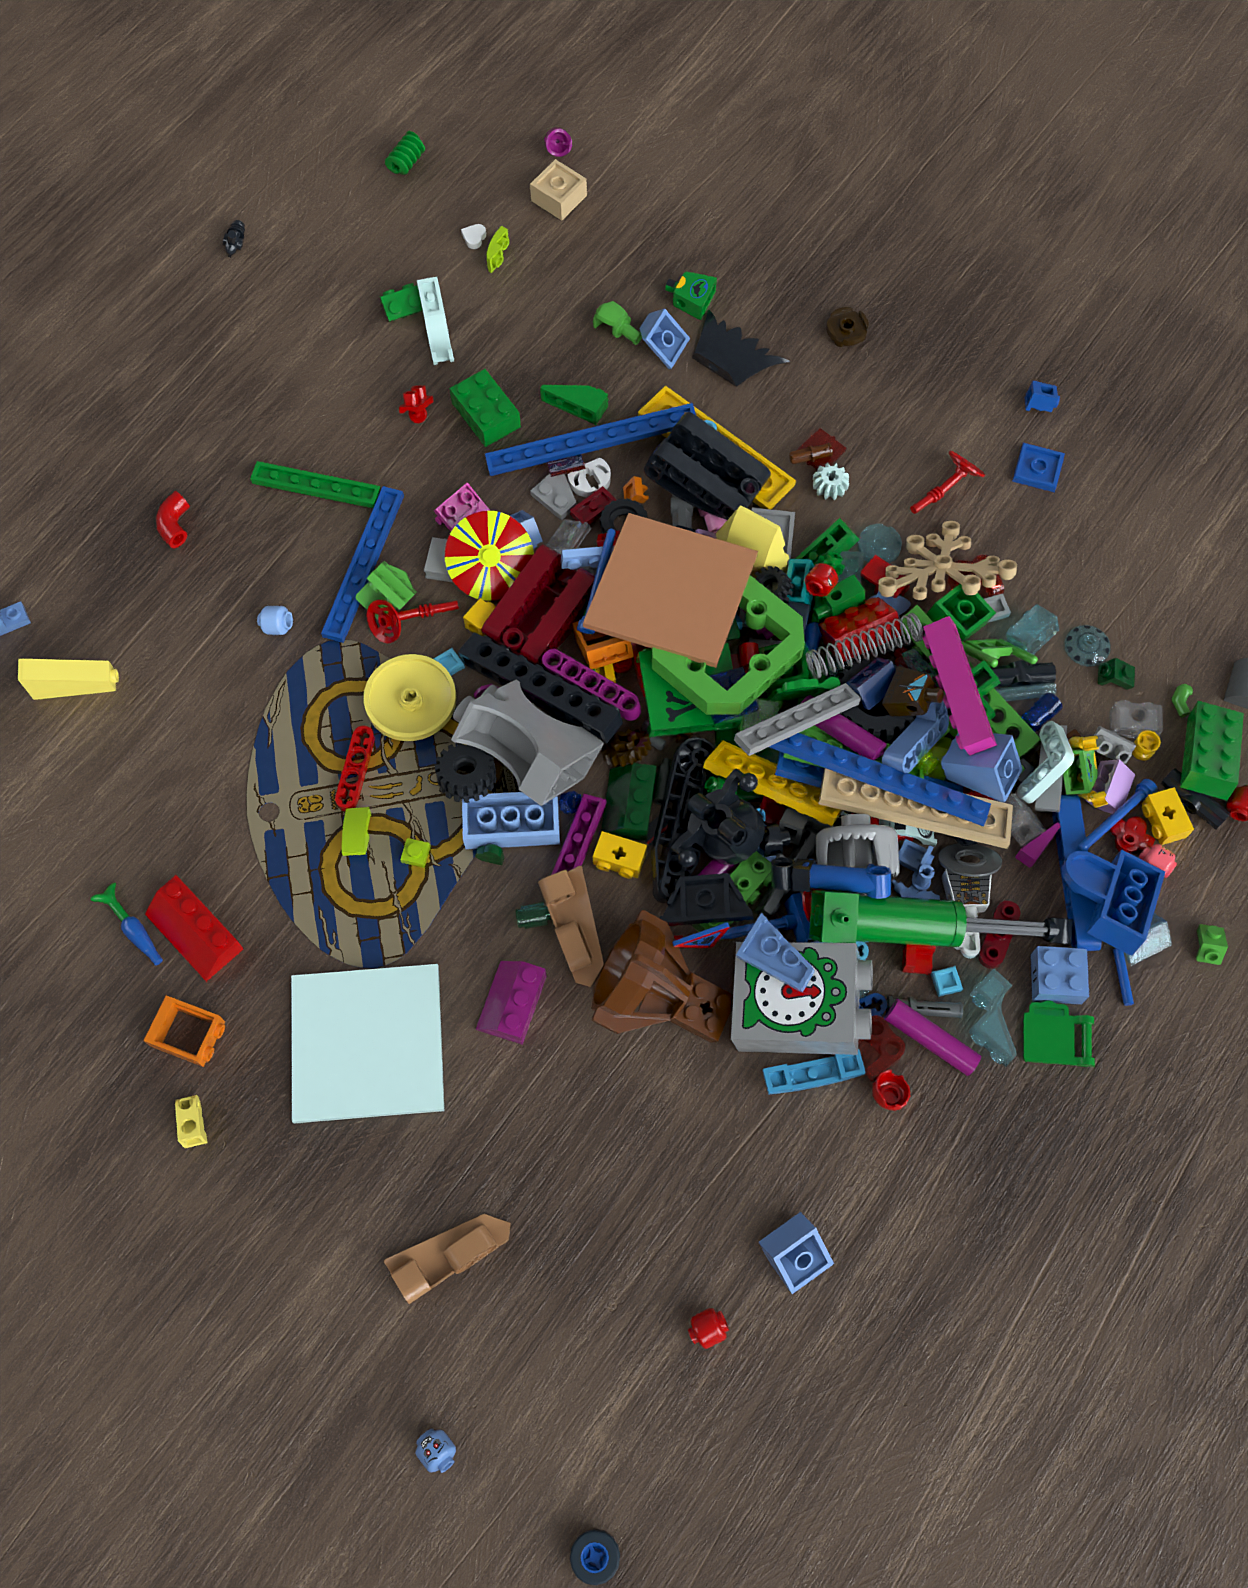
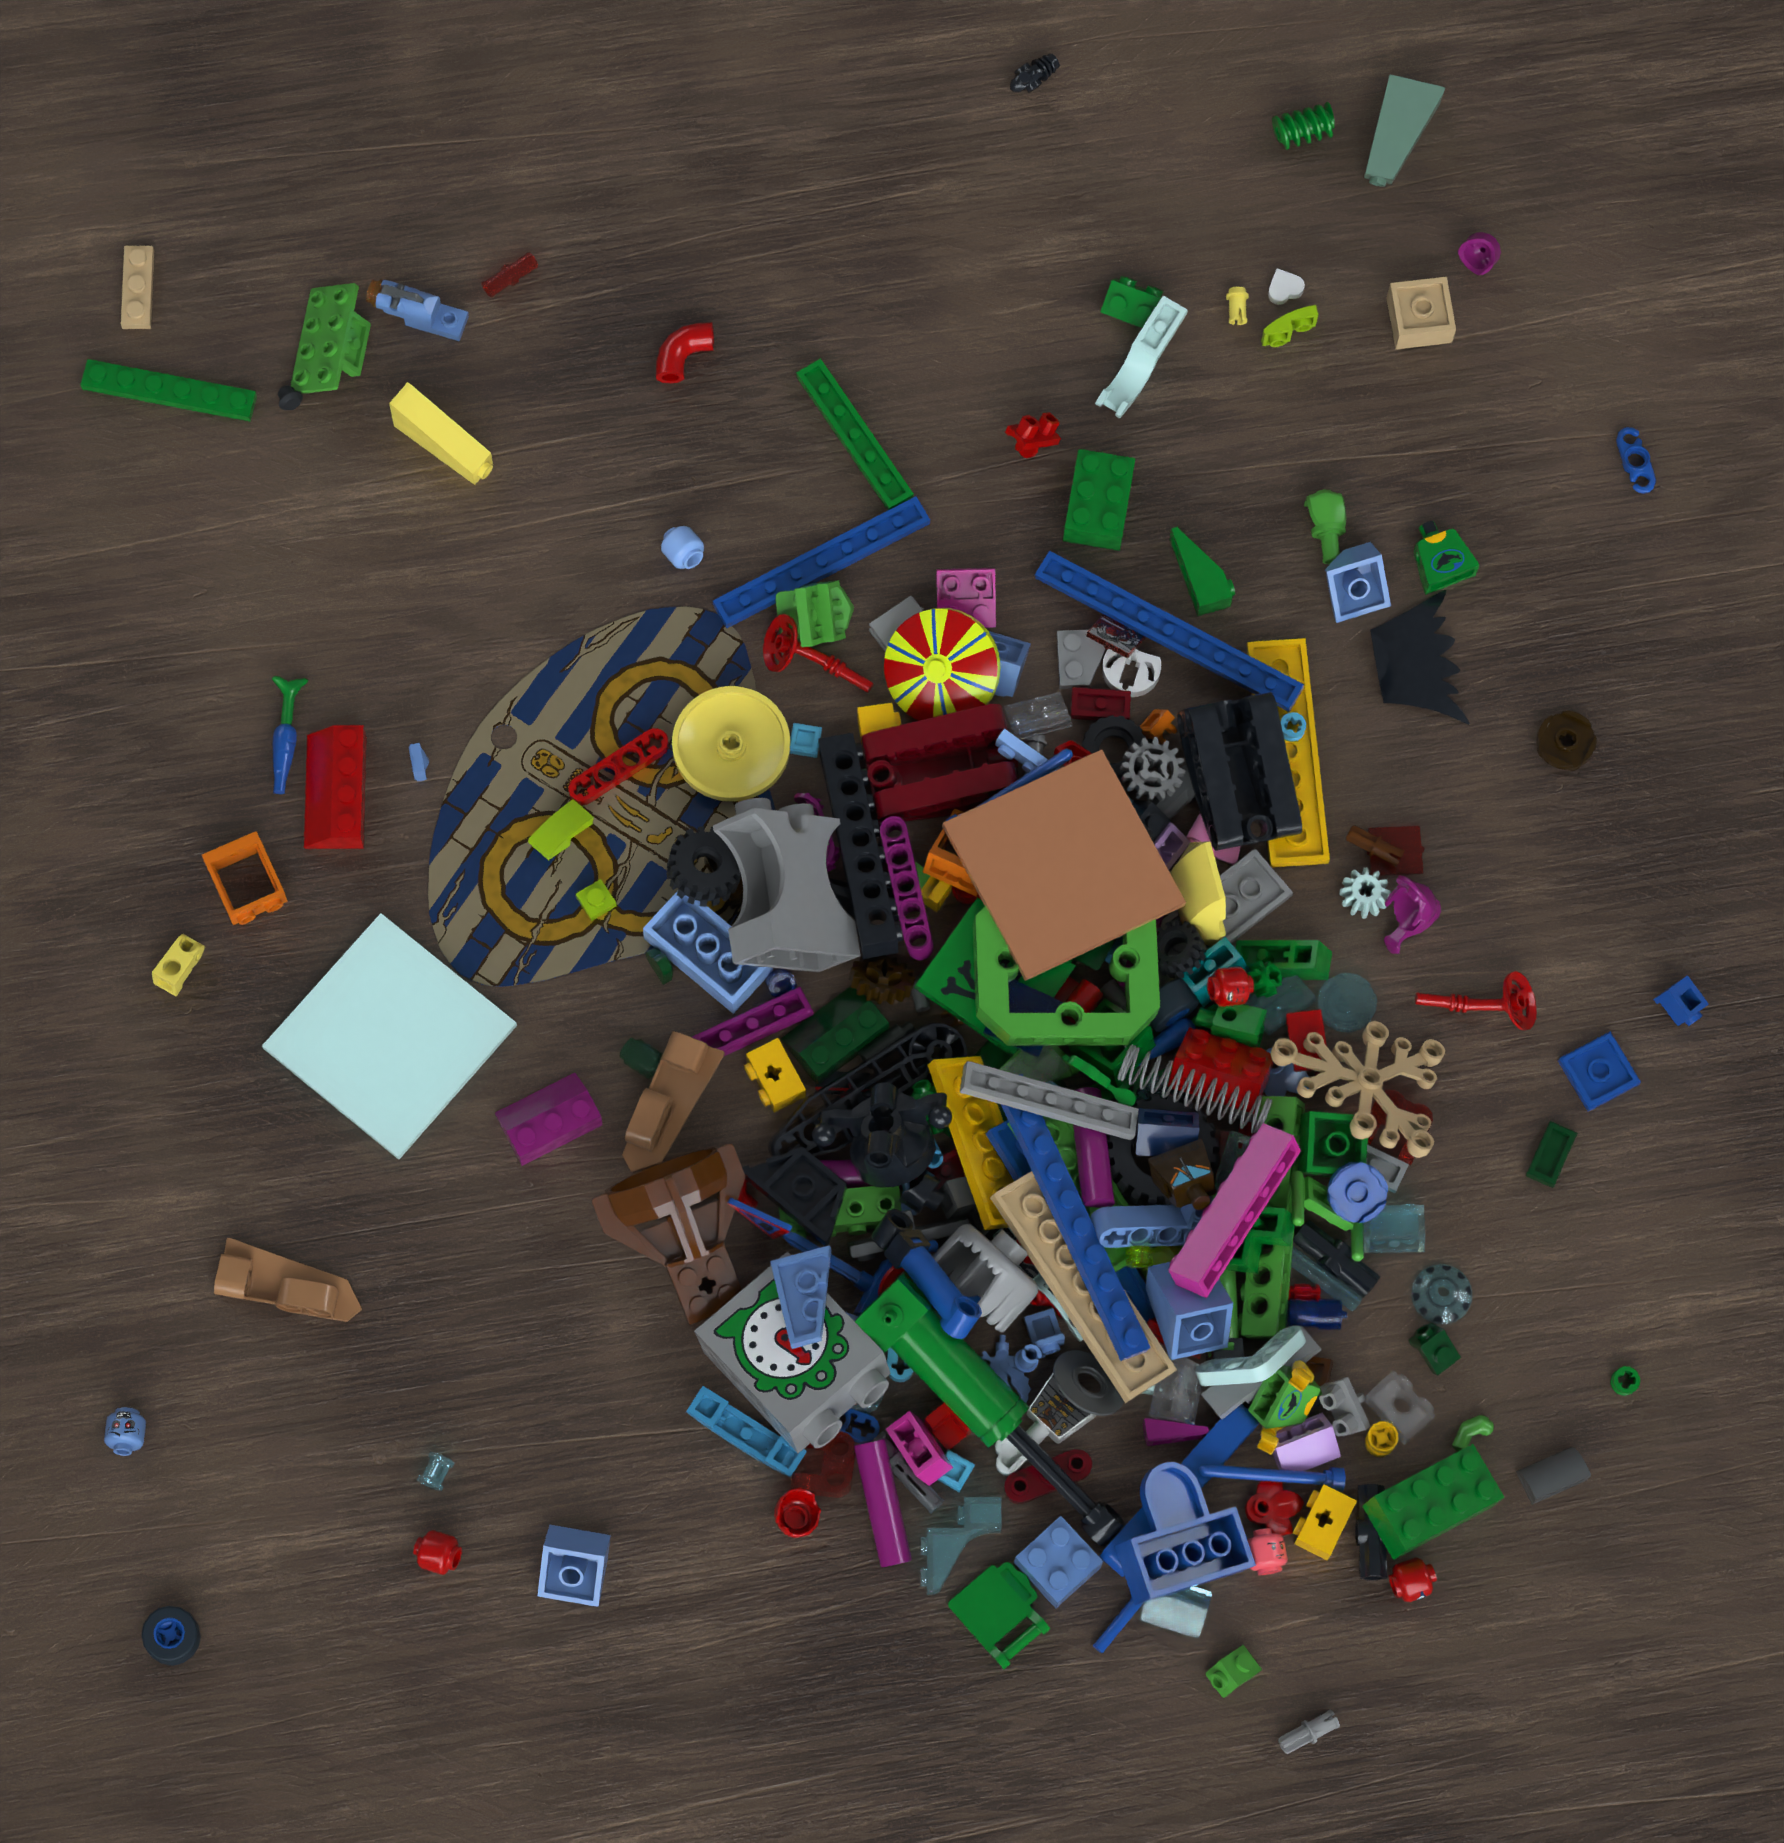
camera: 40 degrees right, 5 degrees up
(27, 562) = (509, 274): none -> clear red pin
(230, 868) = (419, 761): none -> medium blue tile
(452, 112) = (1402, 120): none -> sand green slope
(454, 258) = (1237, 305): none -> light yellow pin
(656, 1278) = (435, 1471): none -> clear light blue bush
(660, 507) = (1160, 778): none -> light grey gear
(745, 176) = (1636, 448): none -> blue piece
(866, 464) = (1414, 910): none -> magenta piece
(920, 984) = (919, 1448): none -> dark pink brick
(1001, 624) = (1357, 1192): none -> tile
(1023, 706) = (1304, 1292): none -> red piece
(1061, 527) = (1551, 1154): none -> dark green tile
(1223, 610) = (1616, 1386): none -> green bush

